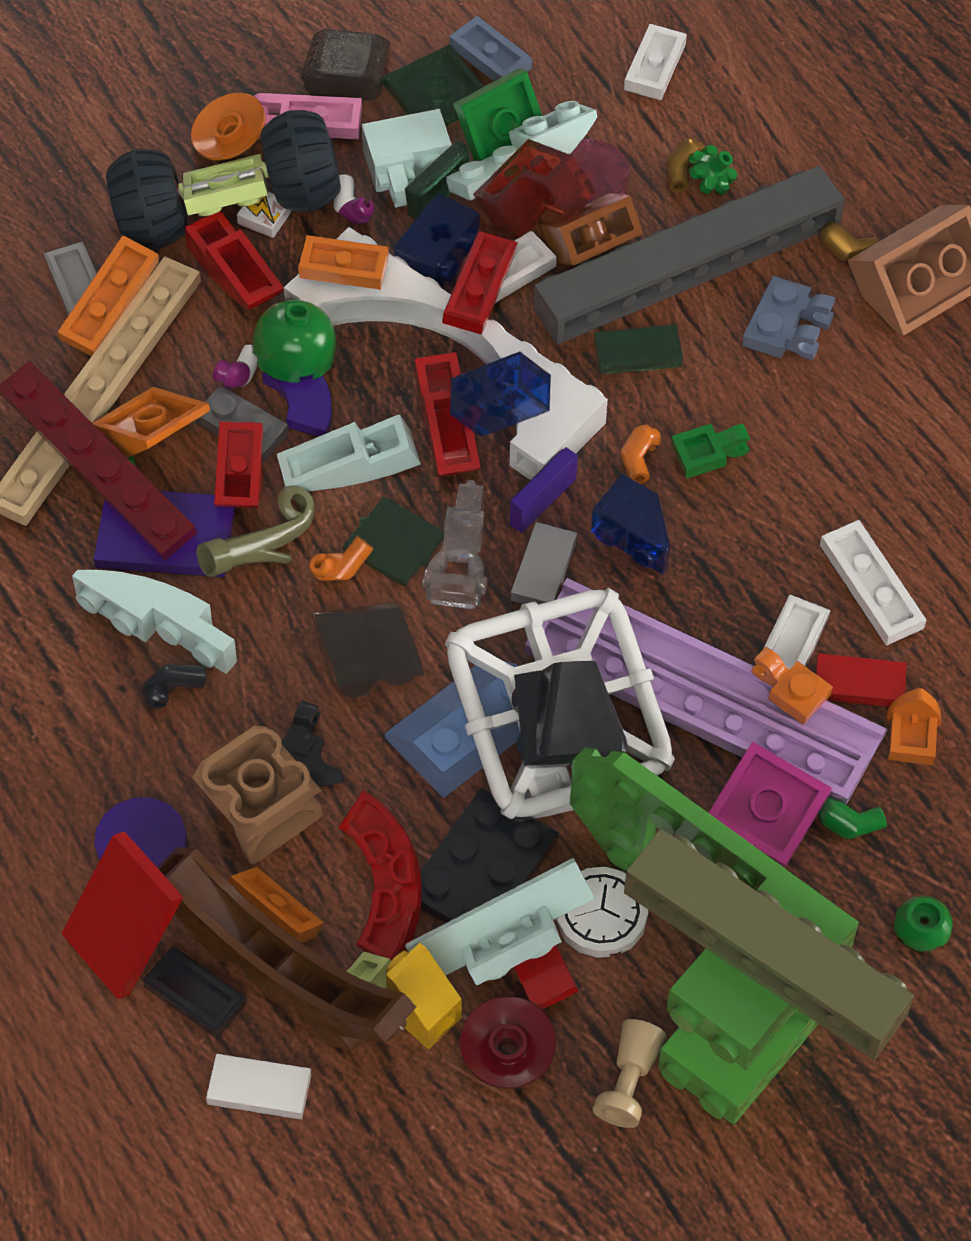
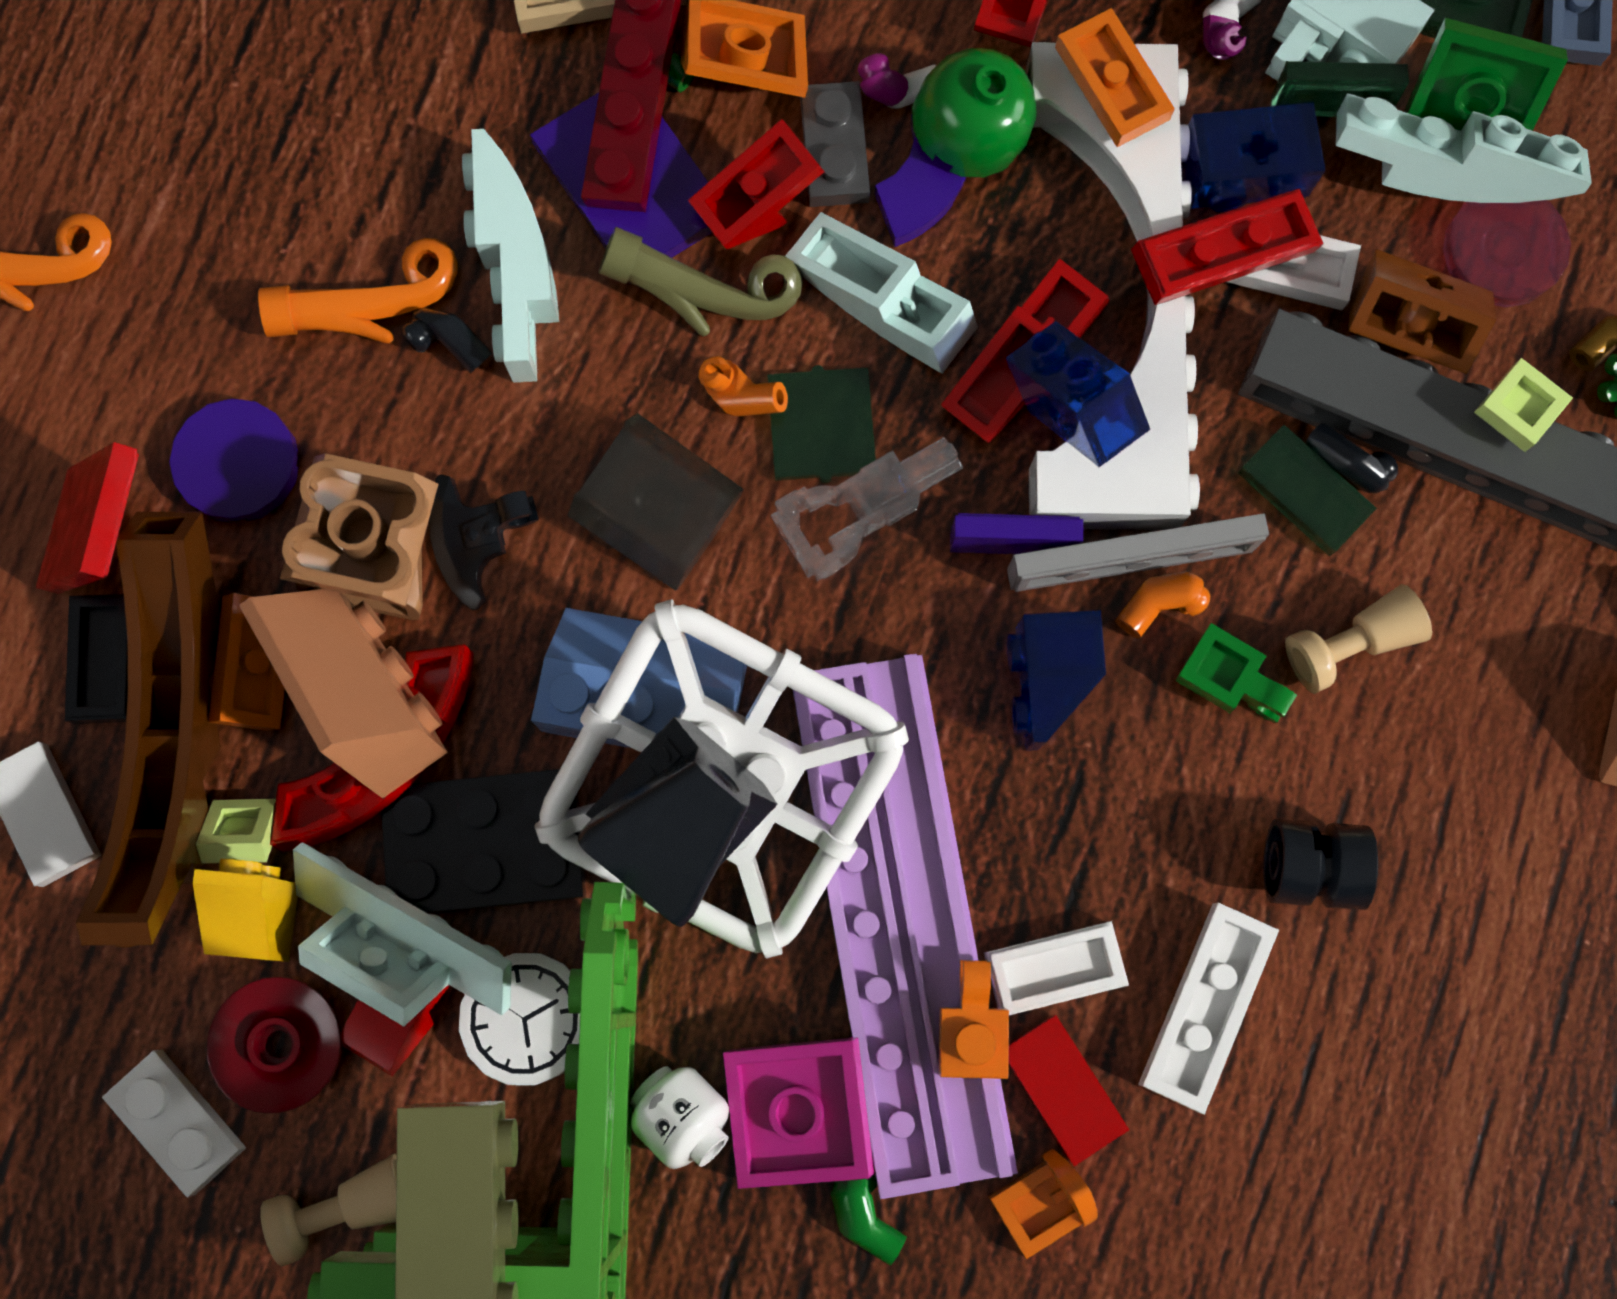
camera: 50 degrees right, 20 degrees up
(79, 750) = (351, 309): none -> orange plant
(343, 849) = (347, 685): none -> nougat slope
(505, 1136) = (174, 1122): none -> white plate
(531, 183) = (1416, 196): clear red brick -> none
(544, 564) = (921, 612): light grey tile -> none
(602, 444) = (1137, 552): none -> light grey tile
(651, 314) = (1365, 471): none -> black arm
(683, 217) = (1523, 405): none -> yellowish green plate
(742, 361) = (1384, 626): none -> tan piece
(778, 315) = (1497, 614): sand blue plate -> none
(840, 478) = (1328, 864): none -> black wheel

